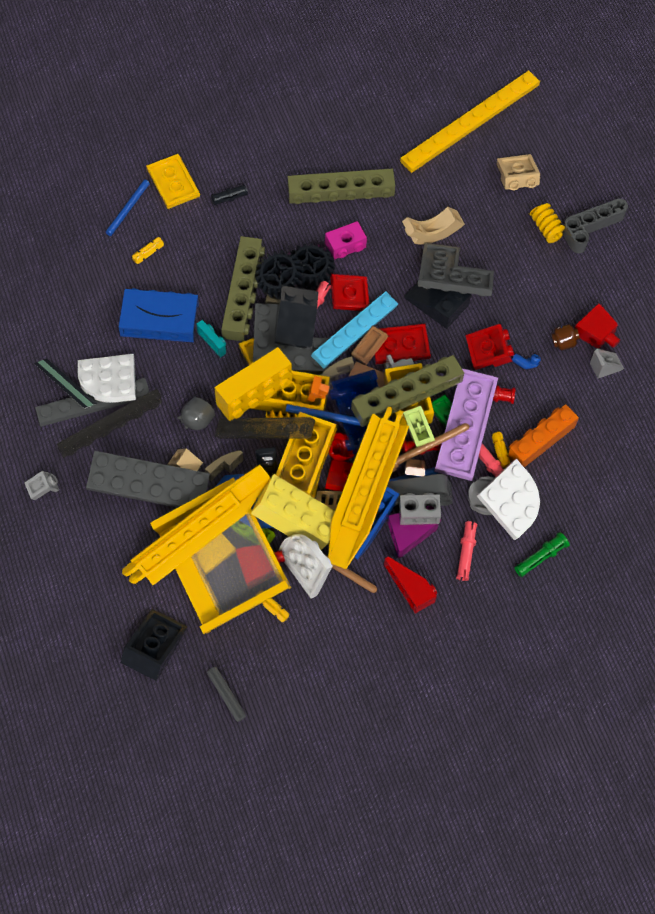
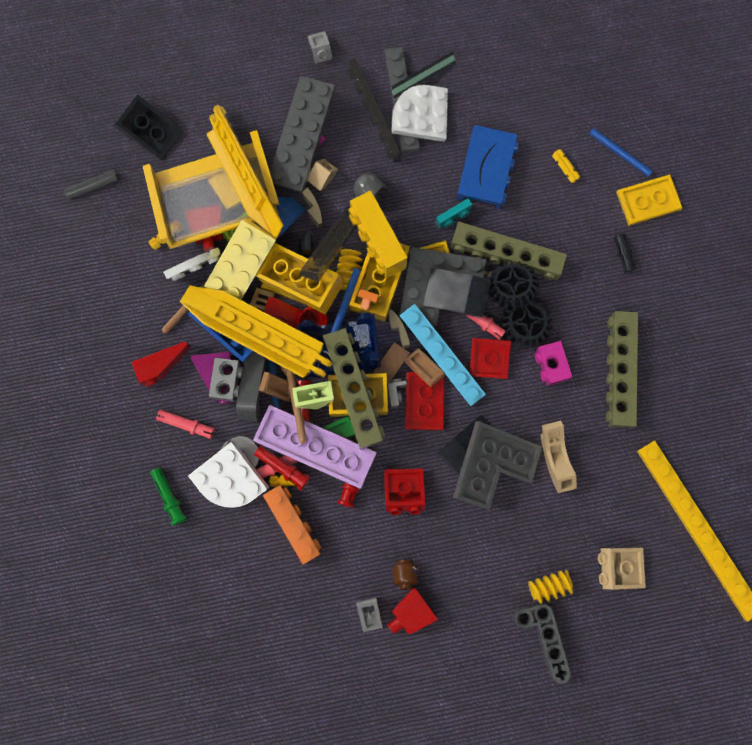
camera: 100 degrees right, 15 degrees up
(495, 443) = (289, 472): none -> red pin
(527, 363) = (383, 528): blue arm -> none

